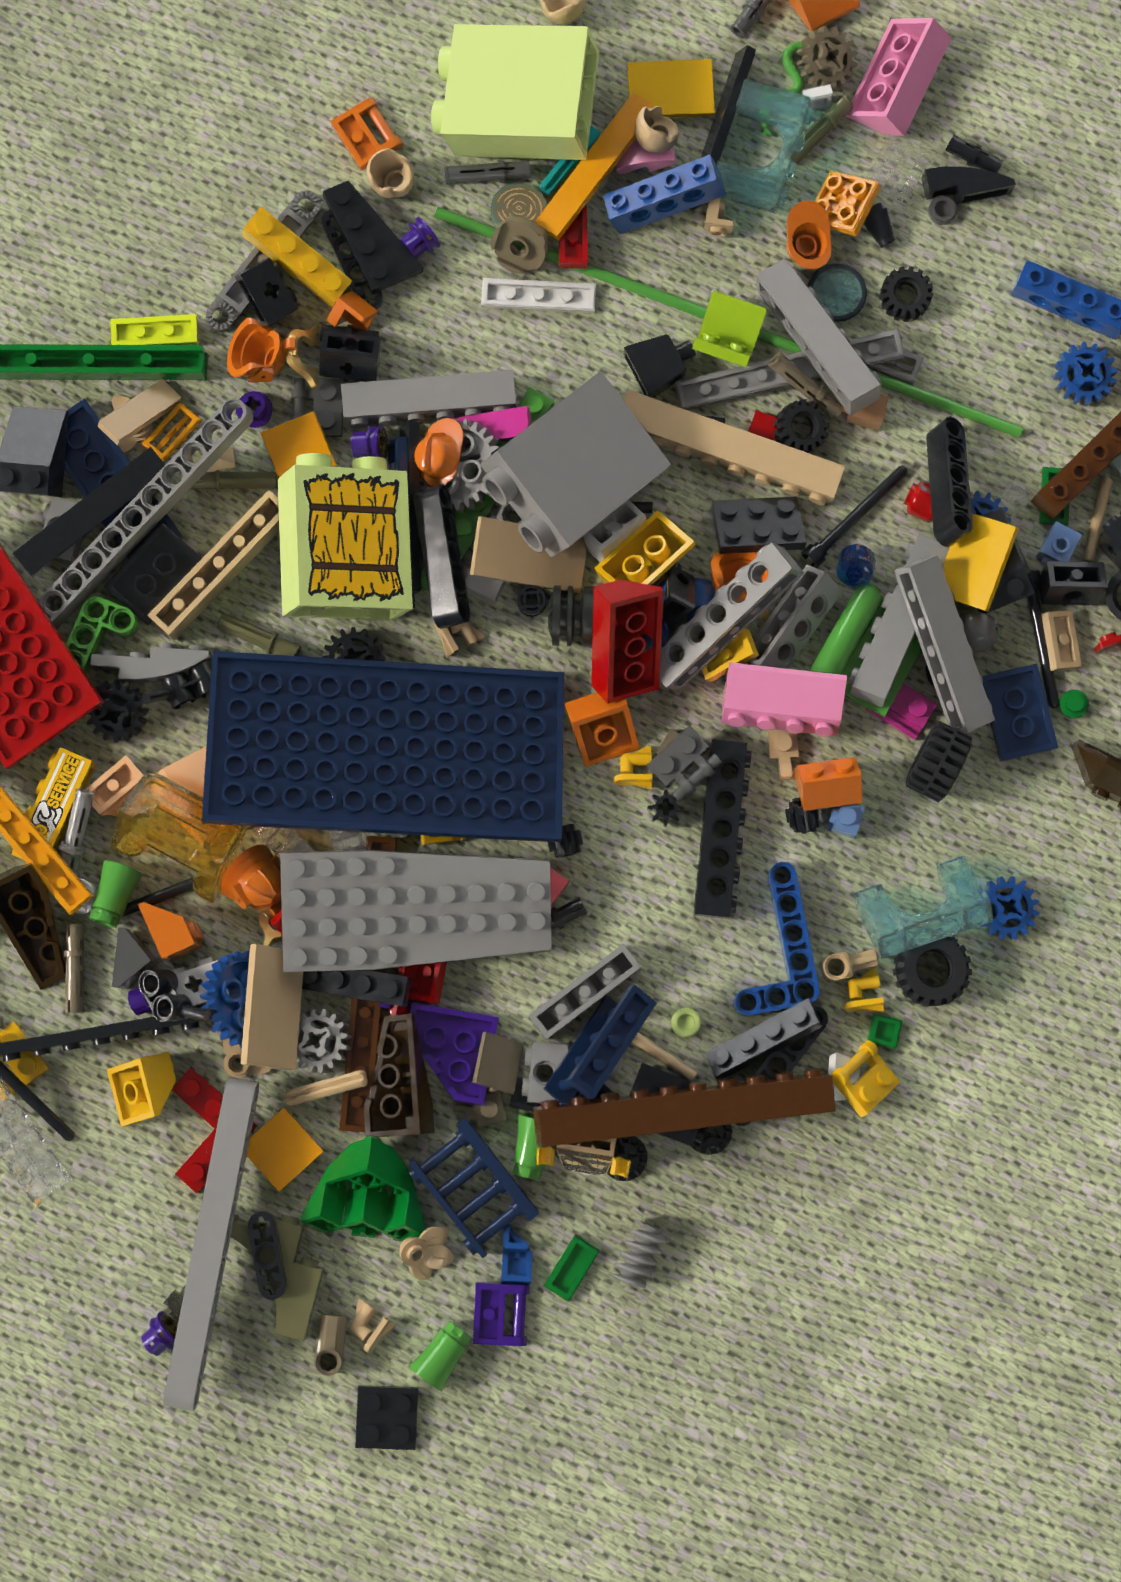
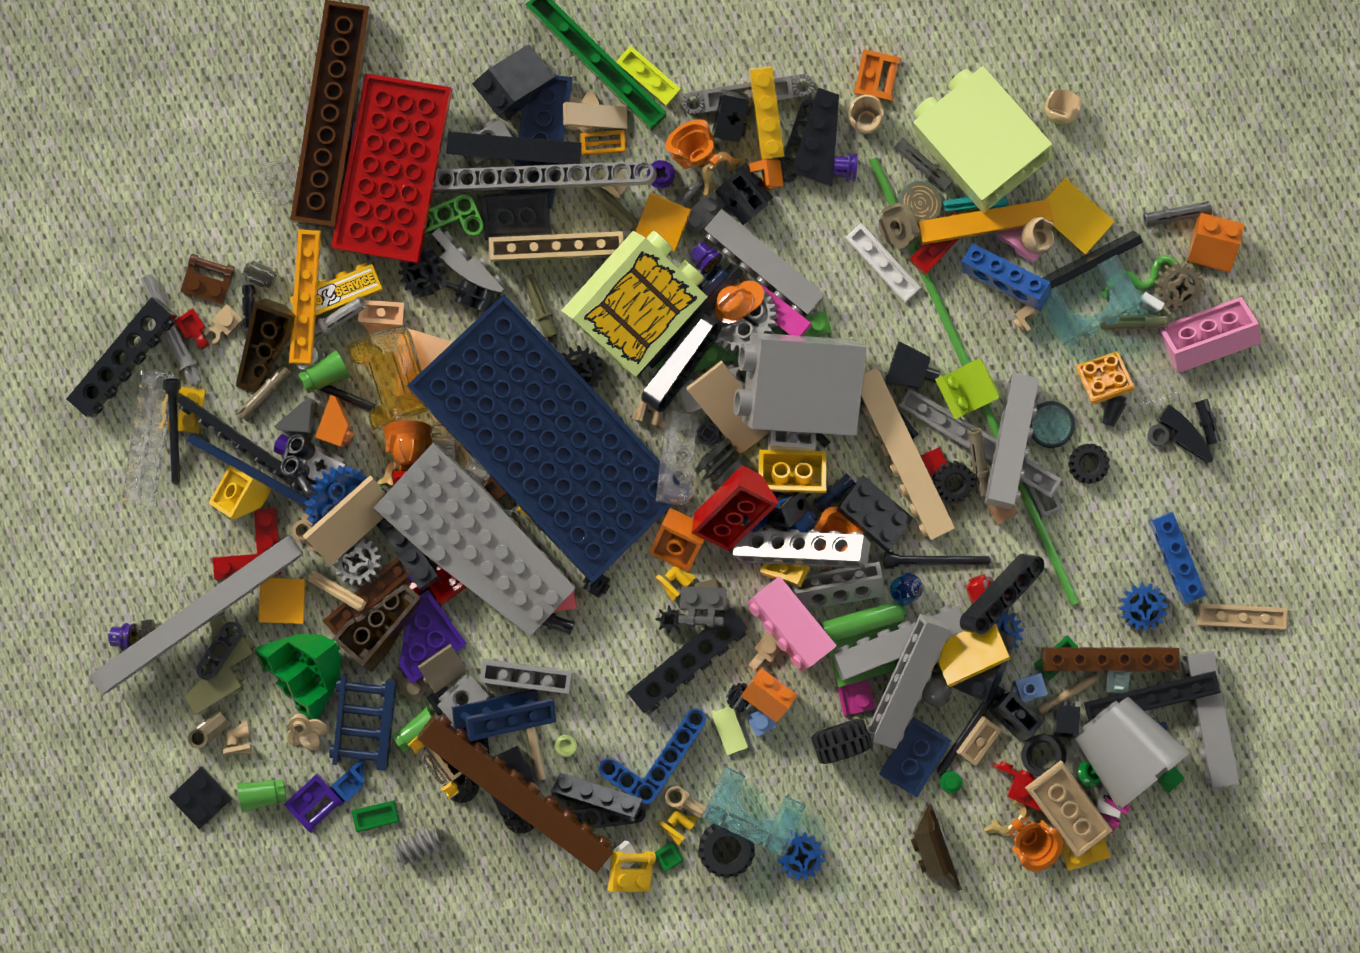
camera: 45 degrees right, 5 degrees up
(119, 1058) = (247, 469): none -> dark blue tile
(545, 686) = (667, 490): none -> clear brick
(703, 542) = (834, 492): none -> dark blue pin
(808, 235) = (1065, 378): orange piece -> none
(823, 857) = (729, 730): none -> yellowish green tile

